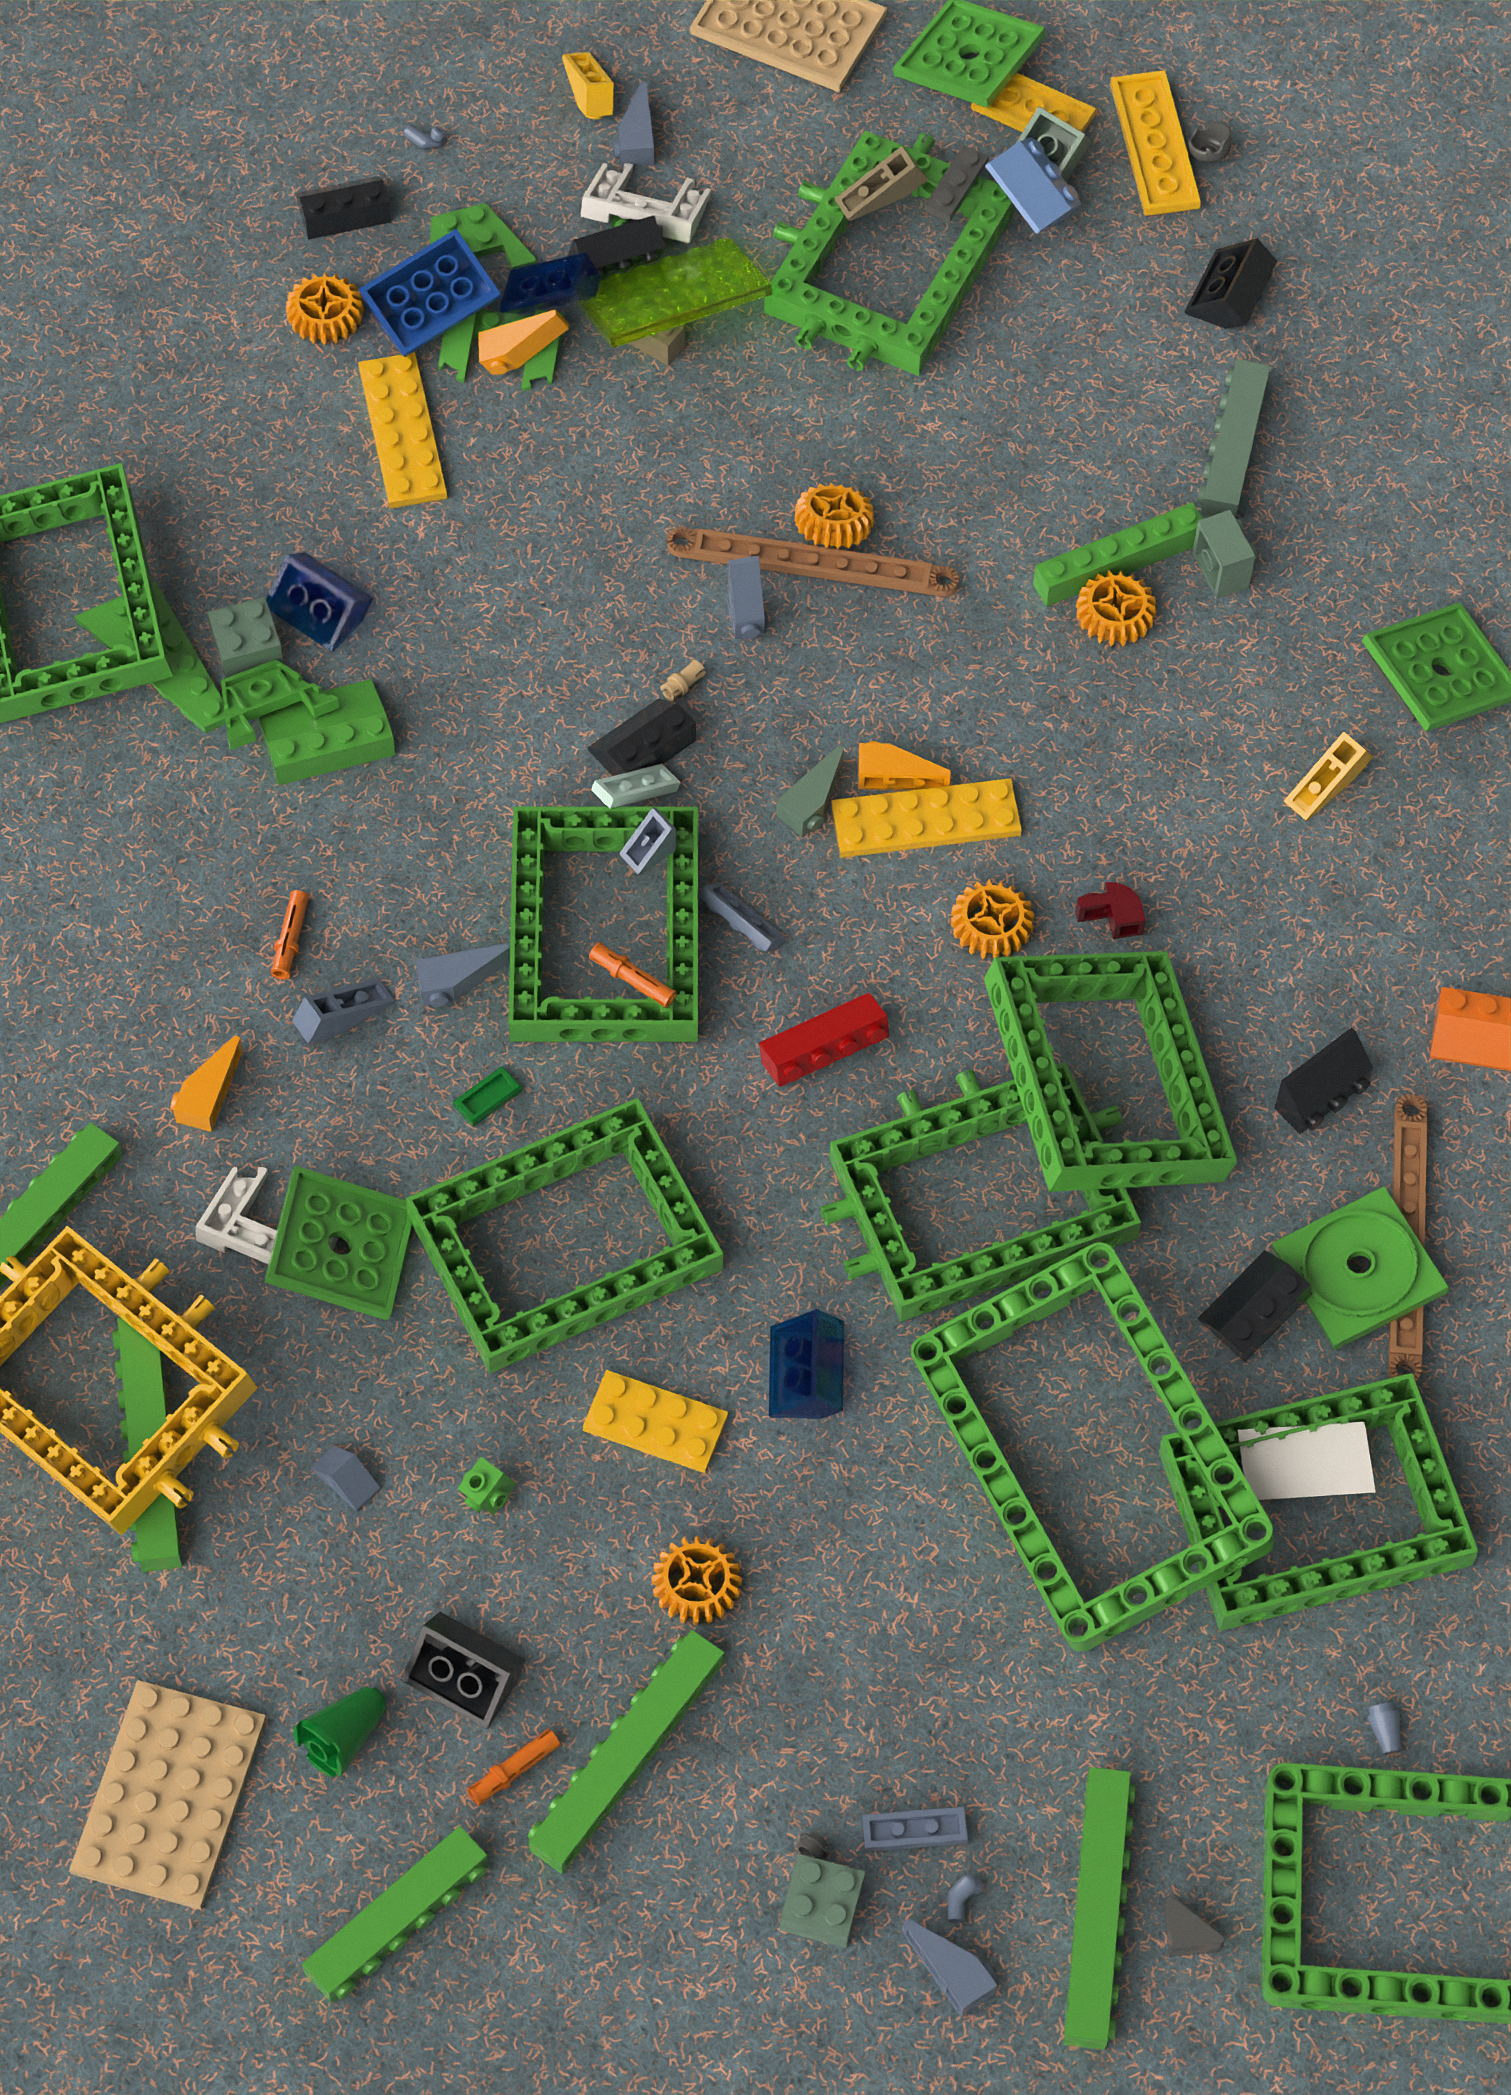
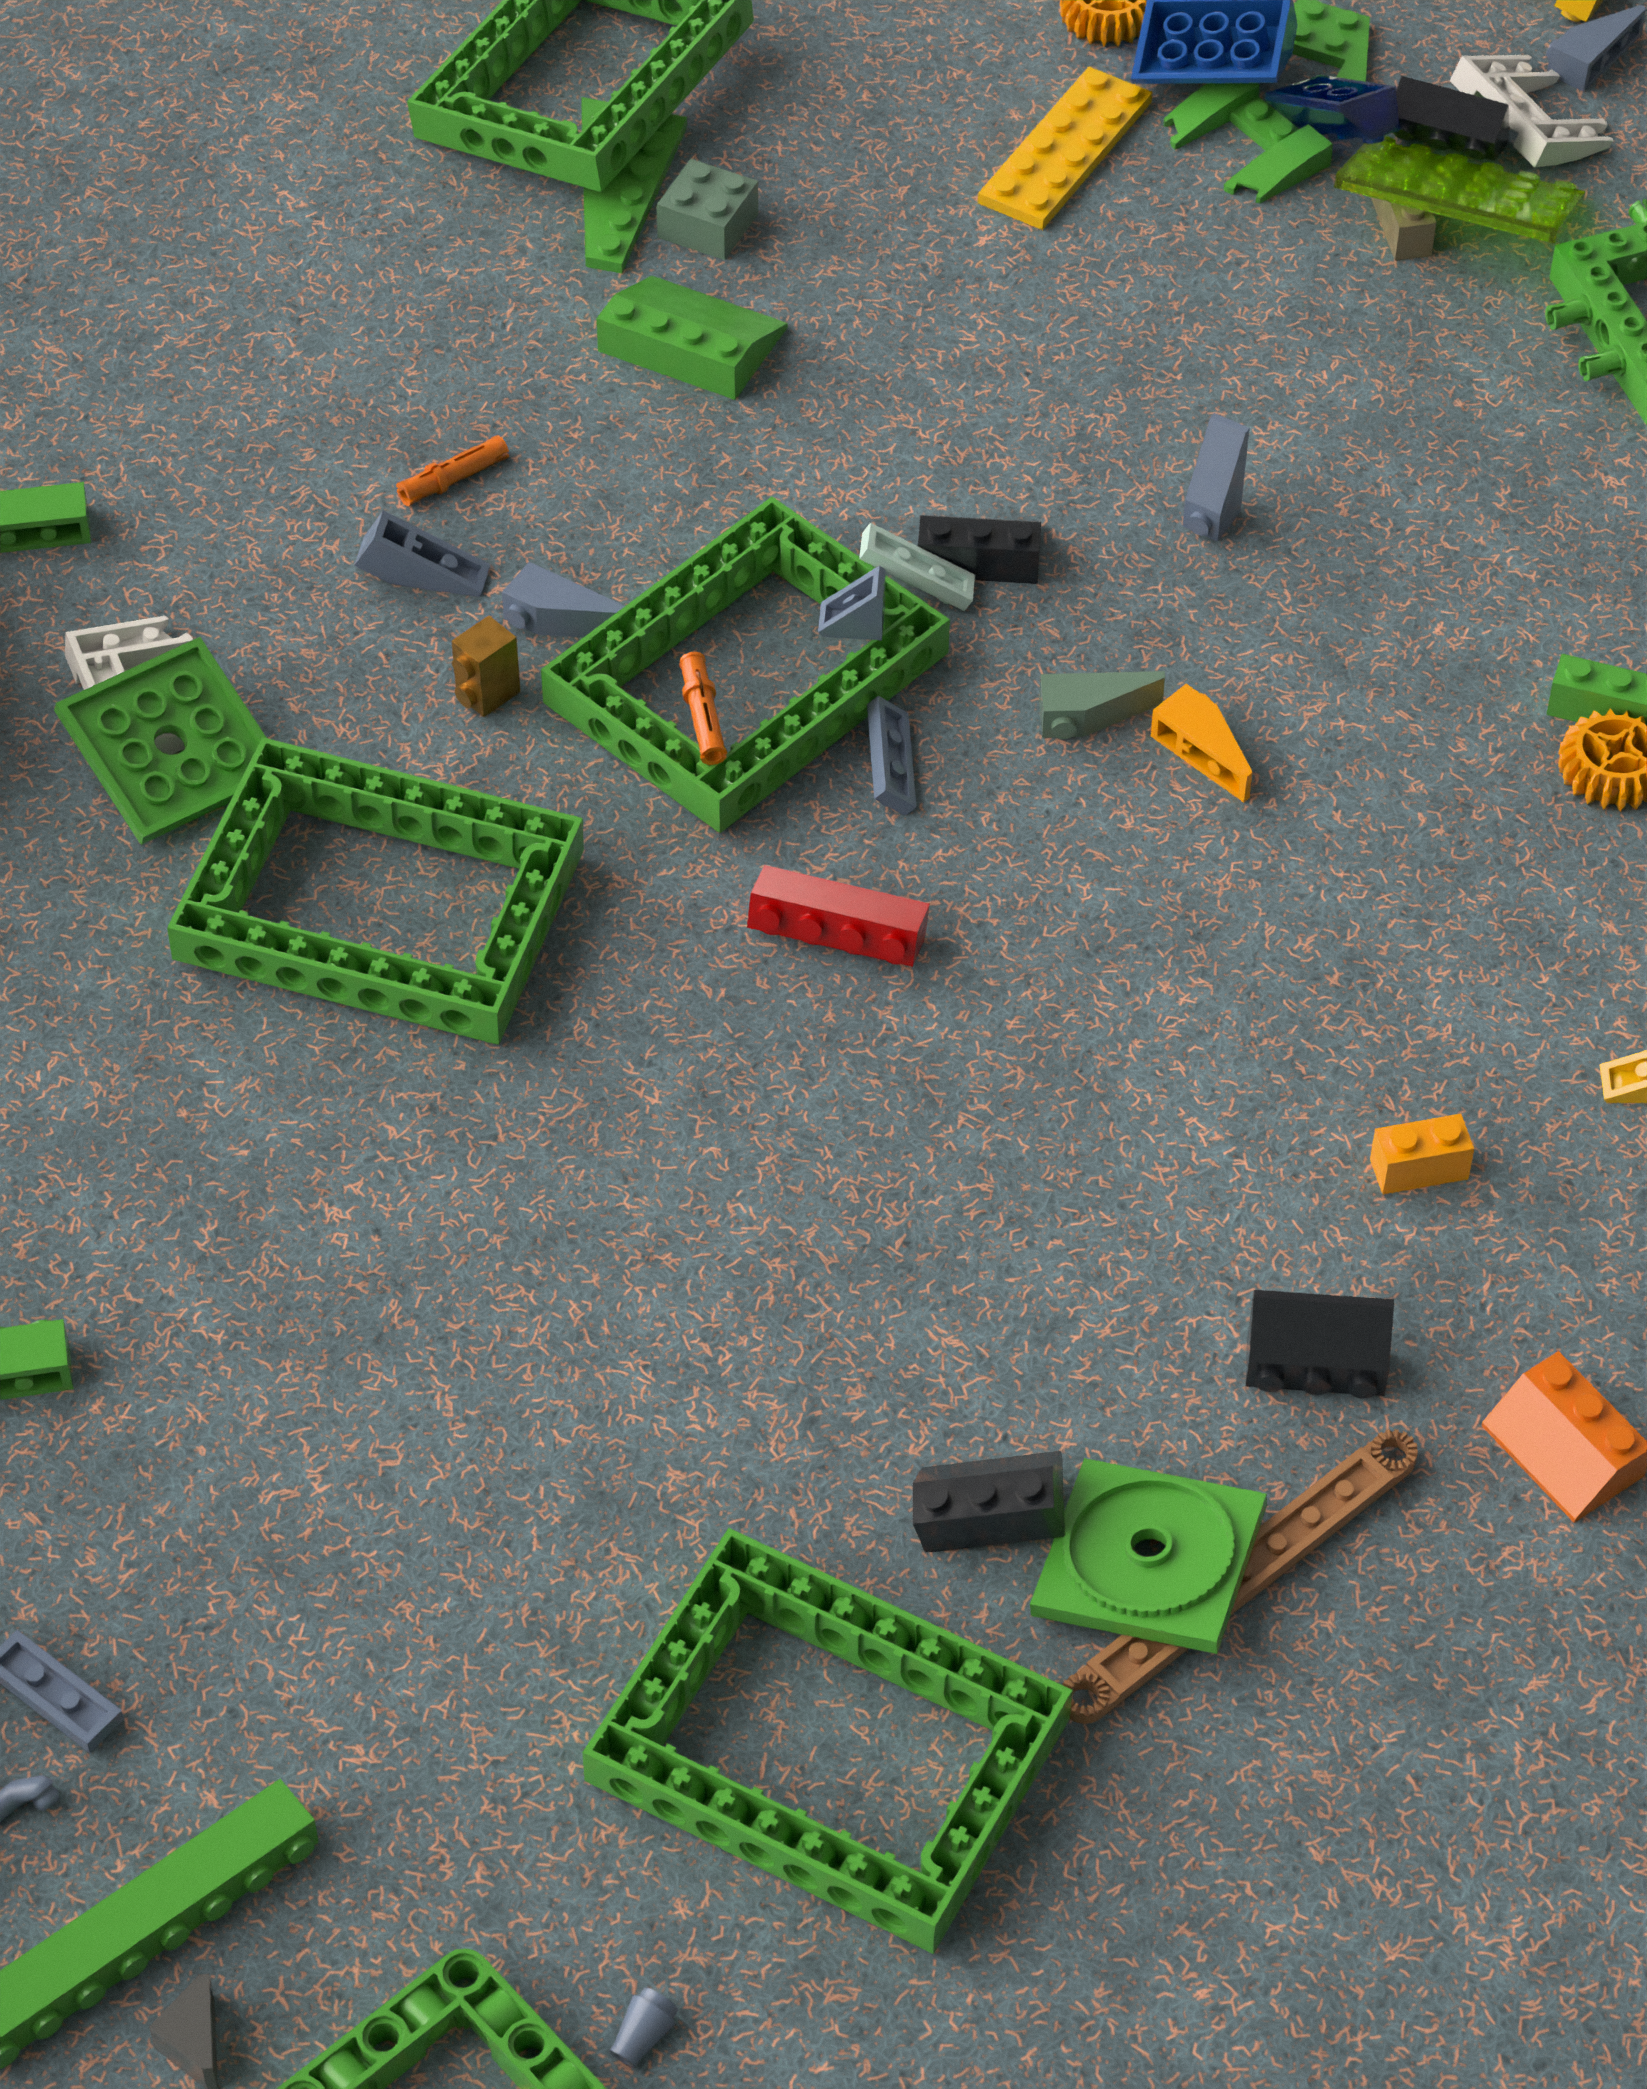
camera: 45 degrees right, 10 degrees down
(207, 1087) = (228, 535): light orange slope -> none
(263, 691) = (661, 257): bright green wing -> none
(317, 600) = (812, 223): clear blue slope -> none
(468, 1047) = (485, 666): none -> pearl gold brick
(486, 1487) = (42, 1045): bright green brick -> none
(487, 1096) = (465, 732): green tile -> none
(517, 342) = (1256, 135): light orange slope -> none
(655, 1421) = (273, 1124): yellow plate -> none
(679, 683) = (1081, 520): tan pin -> none
(709, 1603) = (141, 1297): light orange gear -> none
(806, 1366) = (470, 1190): clear blue slope -> none
(815, 561) = (1347, 515): medium nougat plate -> none
(834, 515) = (1403, 479): light orange gear -> none
(925, 818) = (1188, 807): yellow plate -> none
(929, 1131) = (866, 1081): bright green brick -> none
(986, 929) = (1143, 939): light orange gear -> none
(1117, 904) = (1287, 1021): dark red brick -> none
(1166, 1581) = (610, 1674): bright green beam -> none
(1204, 1145) = (1003, 1247): bright green brick -> none
(1258, 929) = (1421, 1153): none -> light orange brick
(1308, 1463) = (855, 1684): white sticker -> none

